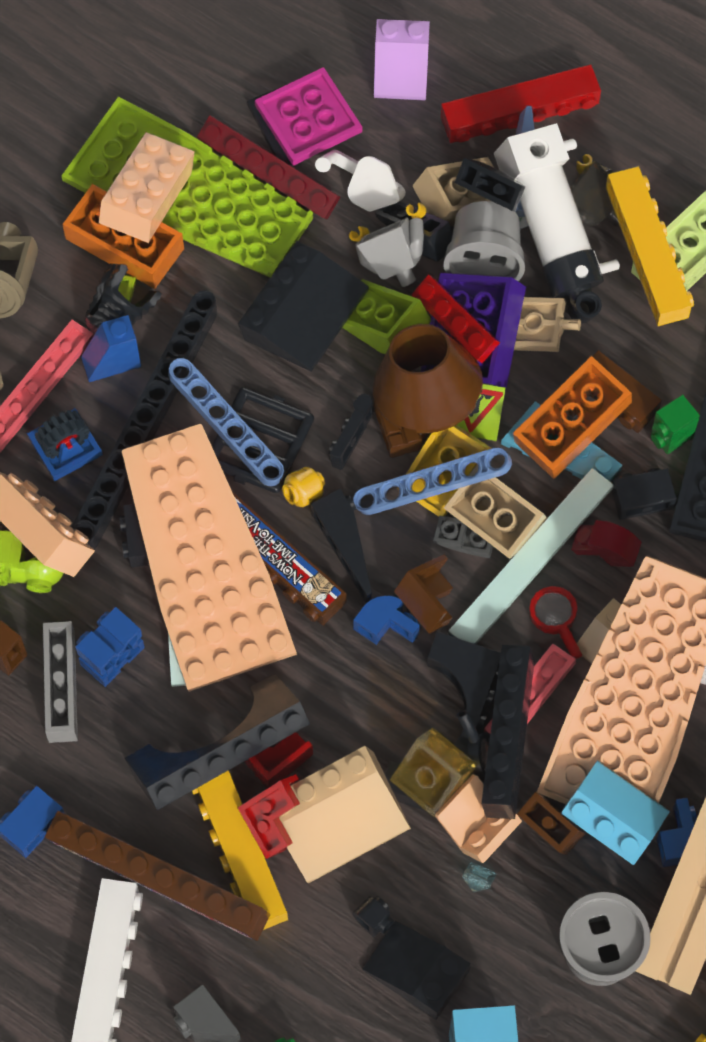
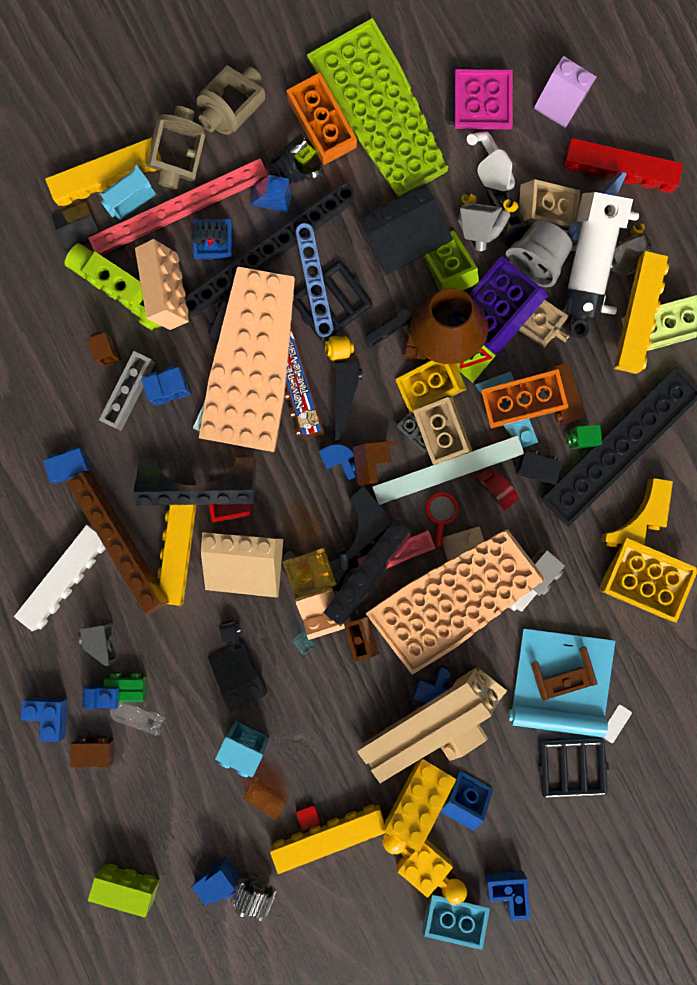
camera: 30 degrees right, 20 degrees up
(146, 187) = (350, 94): light nougat brick -> none
(263, 816) = (198, 541): red panel -> none
(268, 167) = (439, 120): dark red plate -> none
(431, 477) = (415, 390): medium blue beam -> none
(456, 319) = (492, 292): red plate -> none
(490, 183) = (567, 215): black slope -> none
(615, 812) = (400, 655): medium azure slope -> none
(627, 931) = (363, 732): light grey piece -> none

